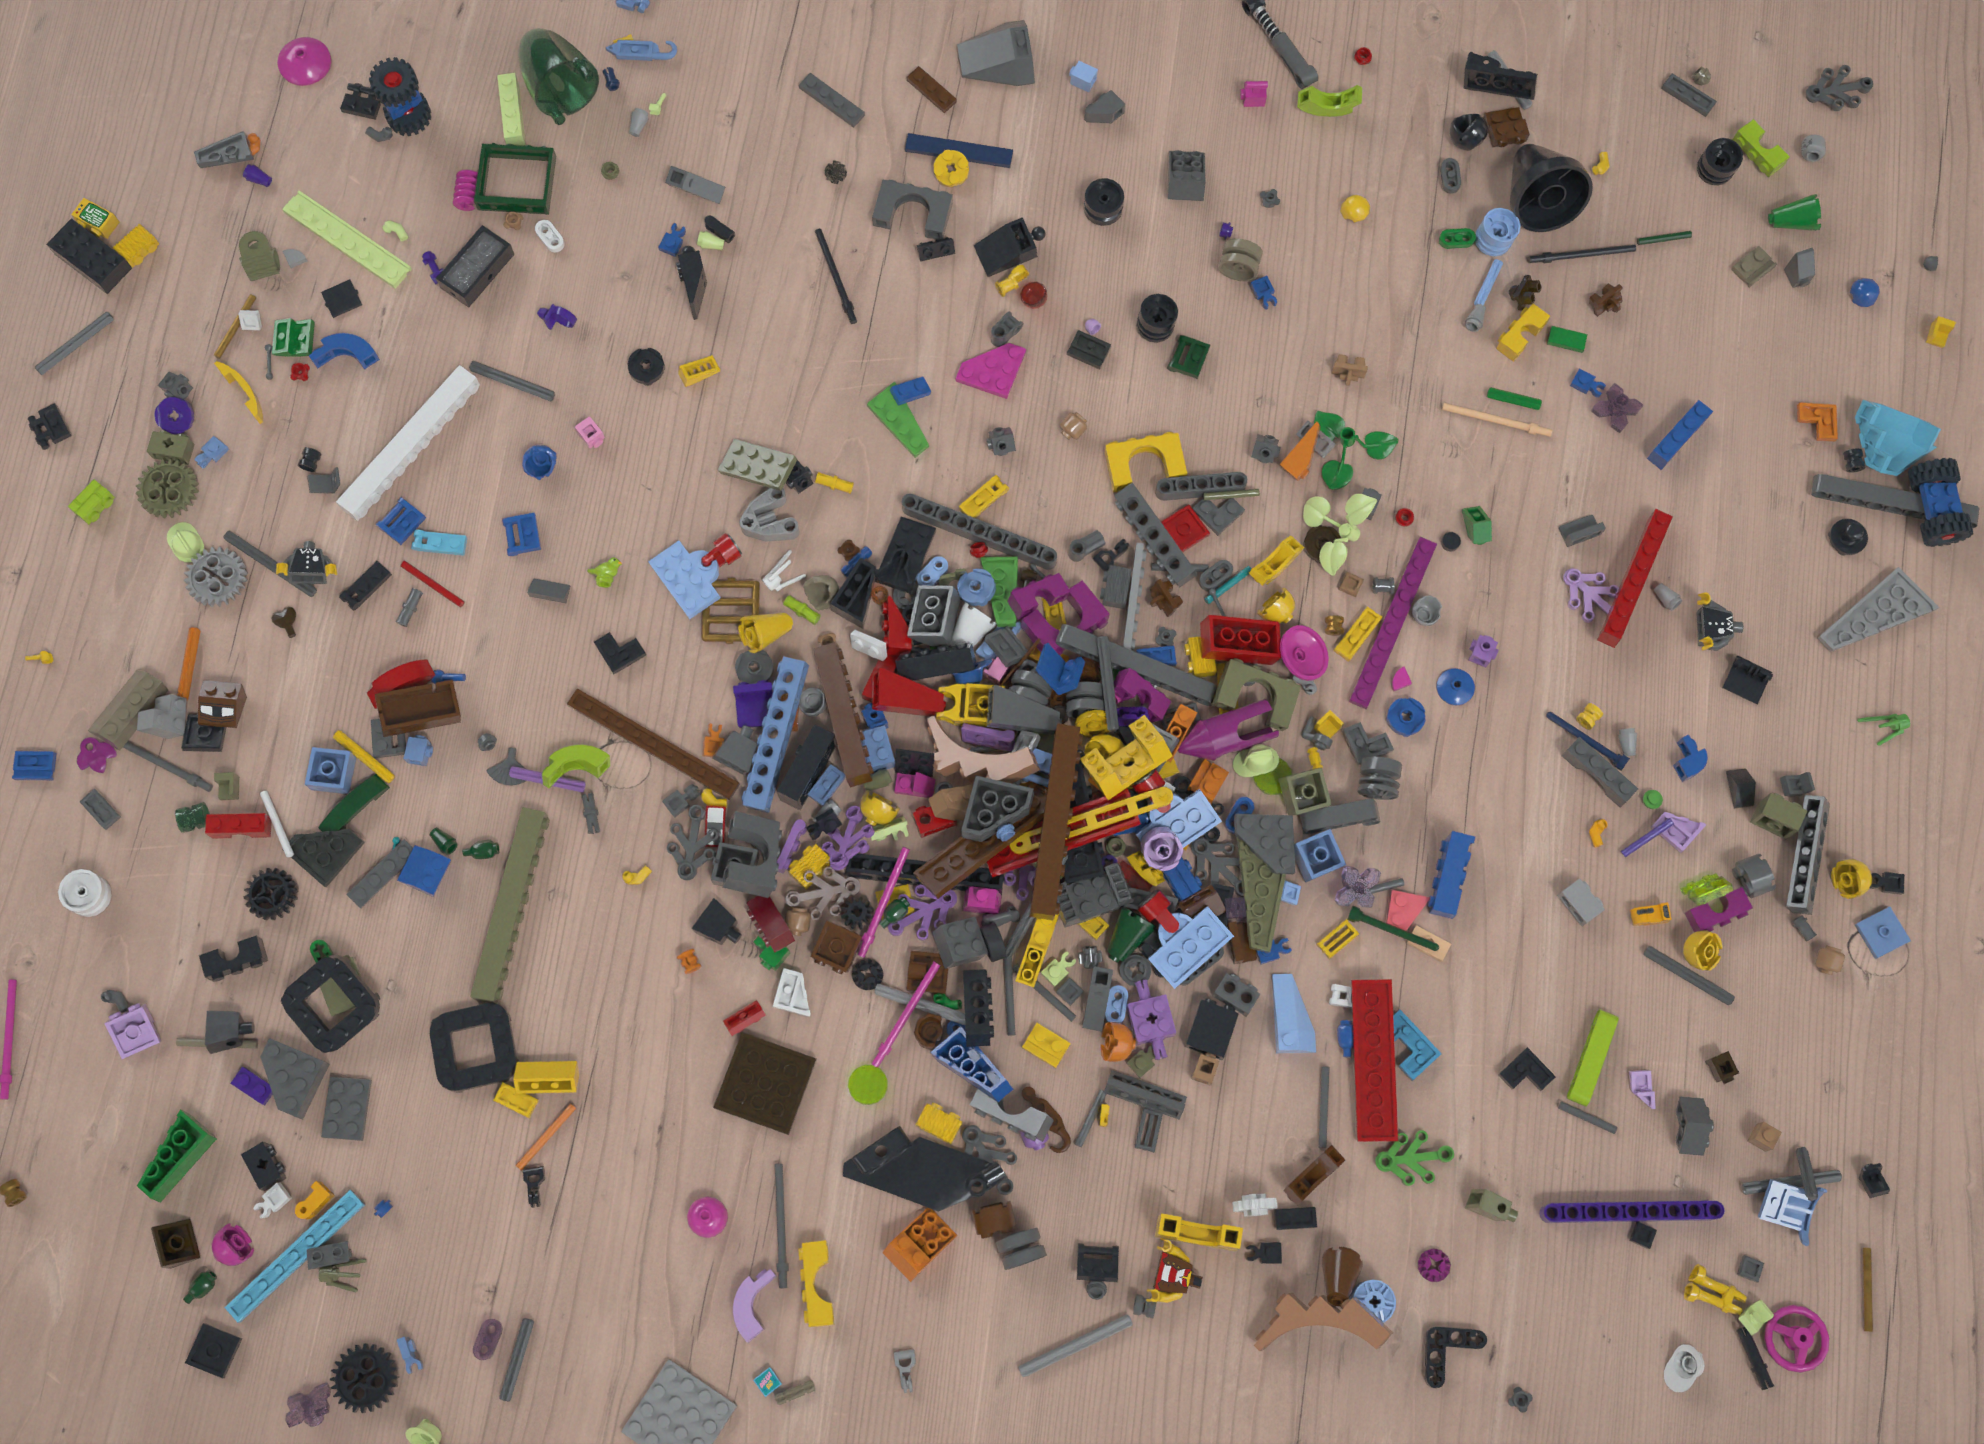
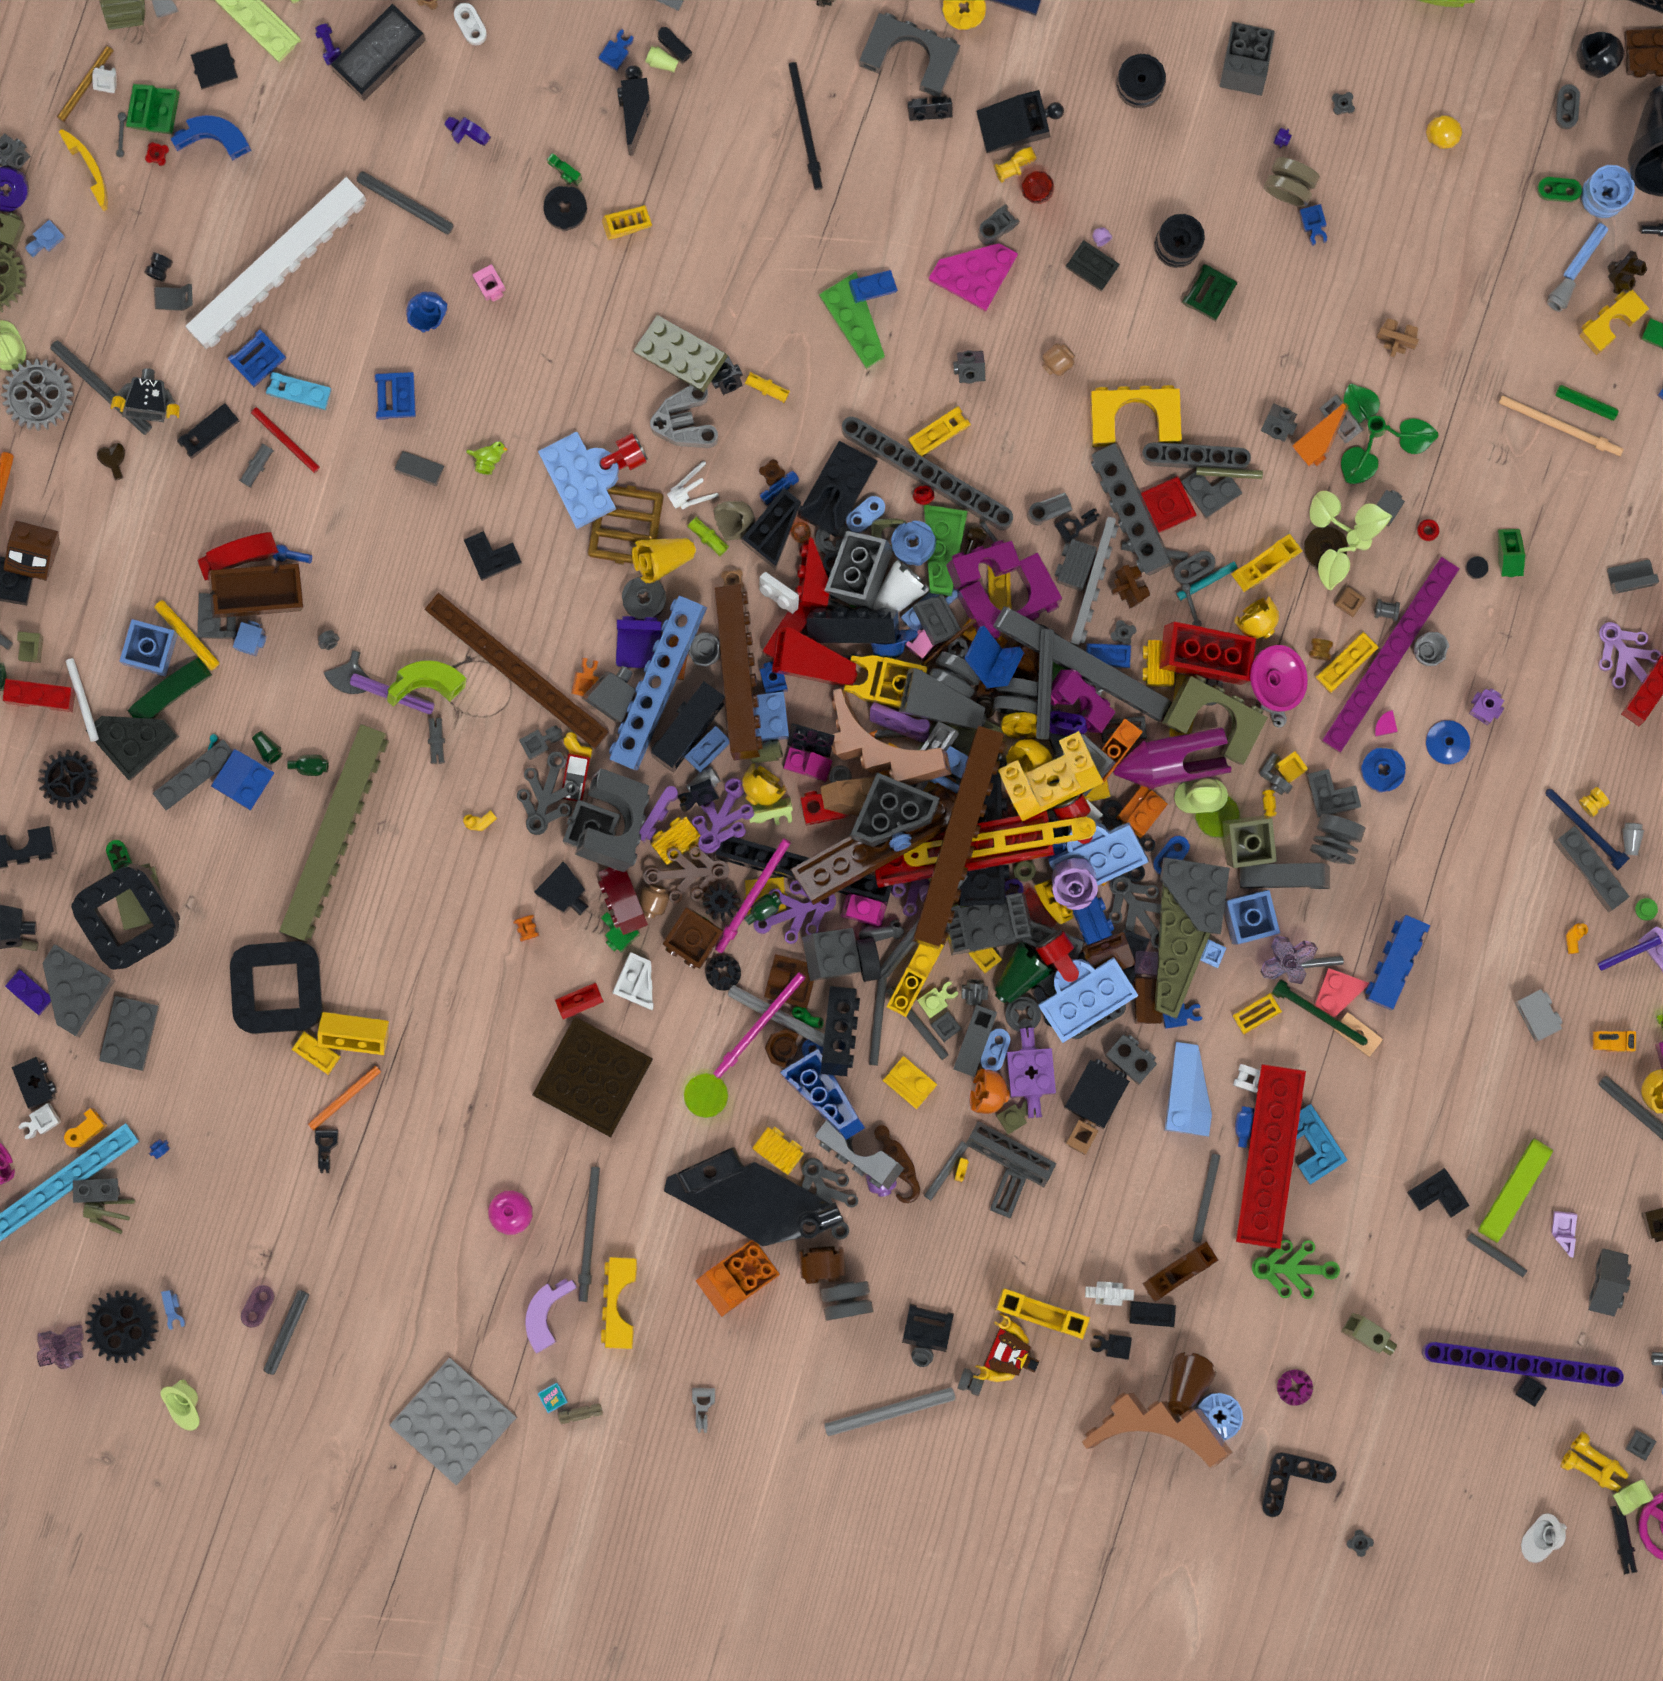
camera: 10 degrees right, 10 degrees up
(644, 337) = (567, 172): none -> green plate

